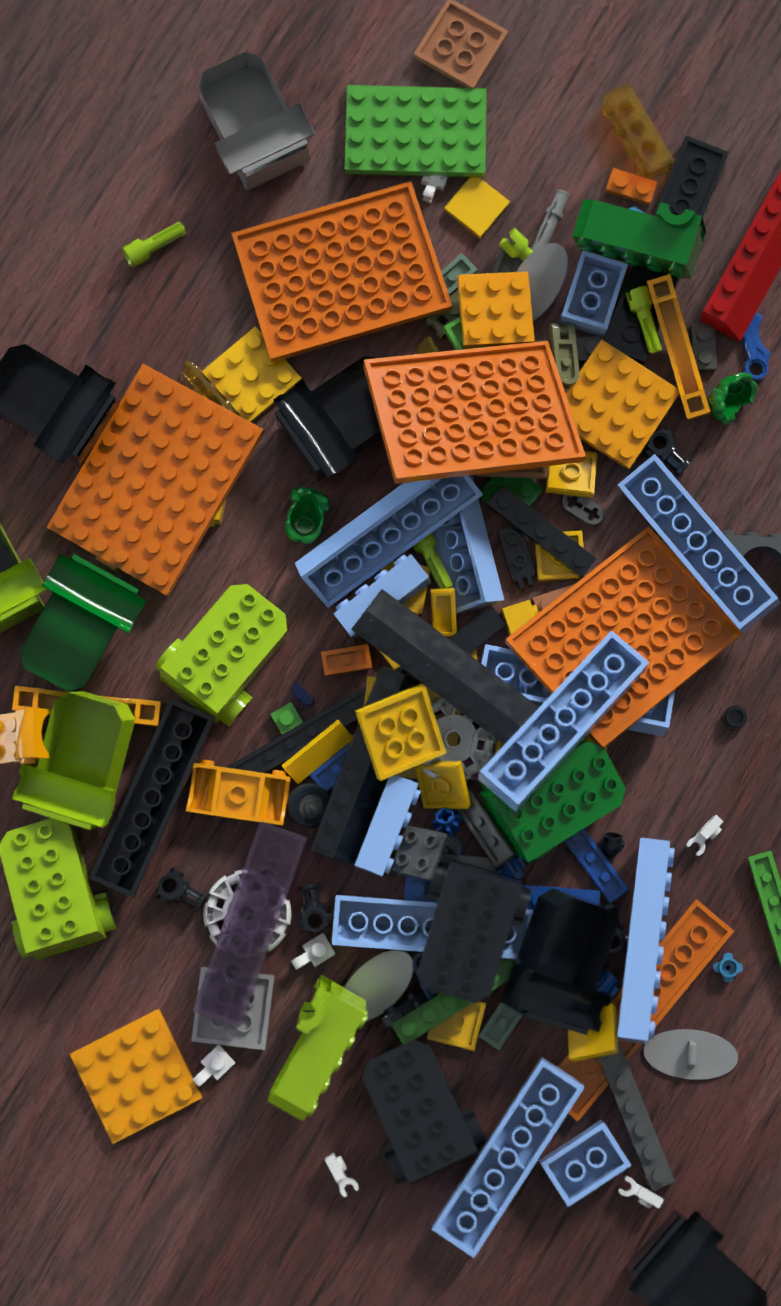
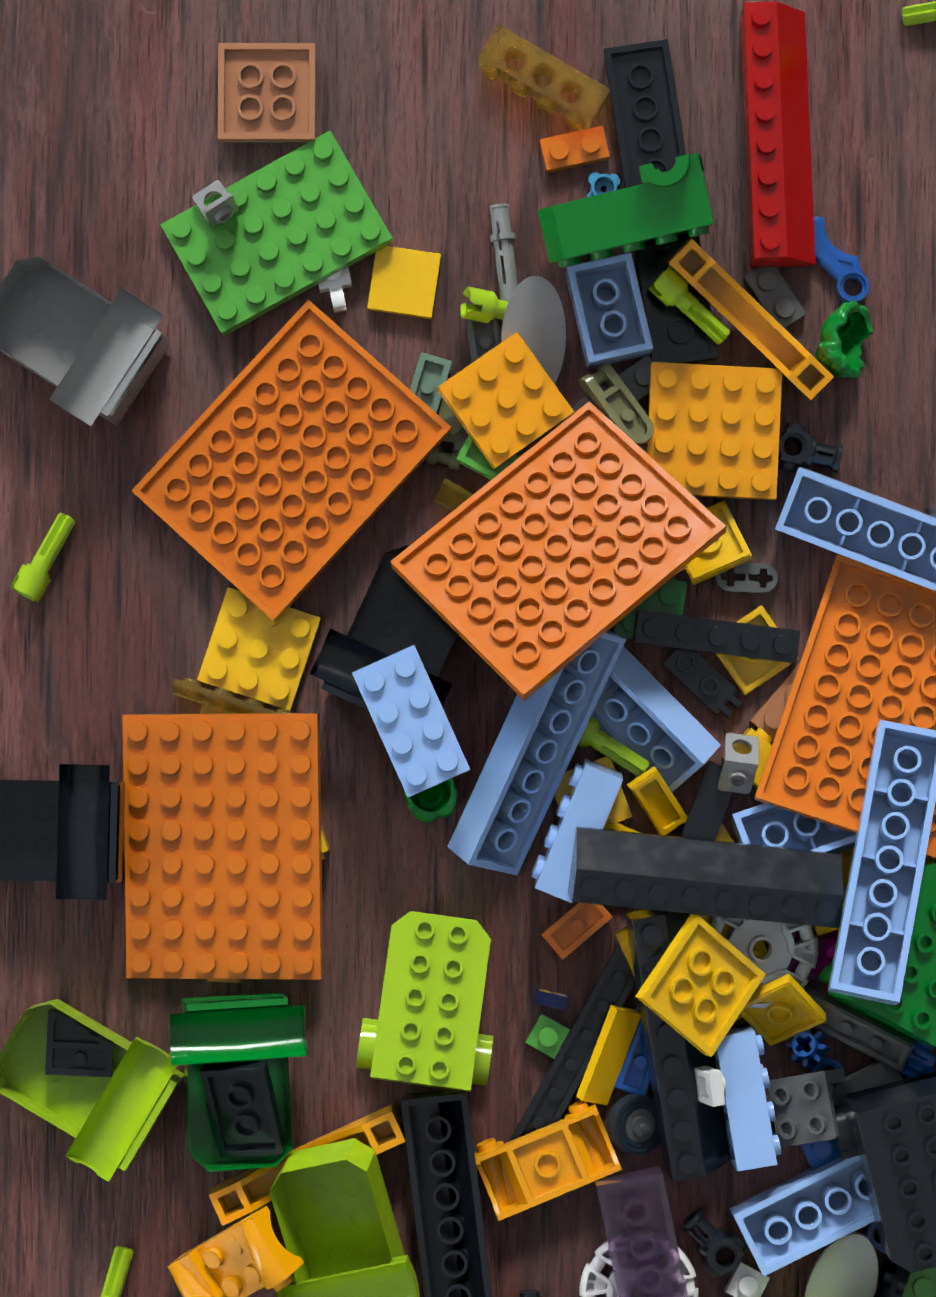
camera: 30 degrees left, 5 degrees up
(69, 644) = (243, 1109): none -> black plate
(318, 462) = (411, 721): none -> light blue brick
(369, 801) = (710, 1086): none -> white plate
(388, 93) = (219, 210): none -> light grey bracket
(506, 617) = (739, 769): none -> light grey bracket

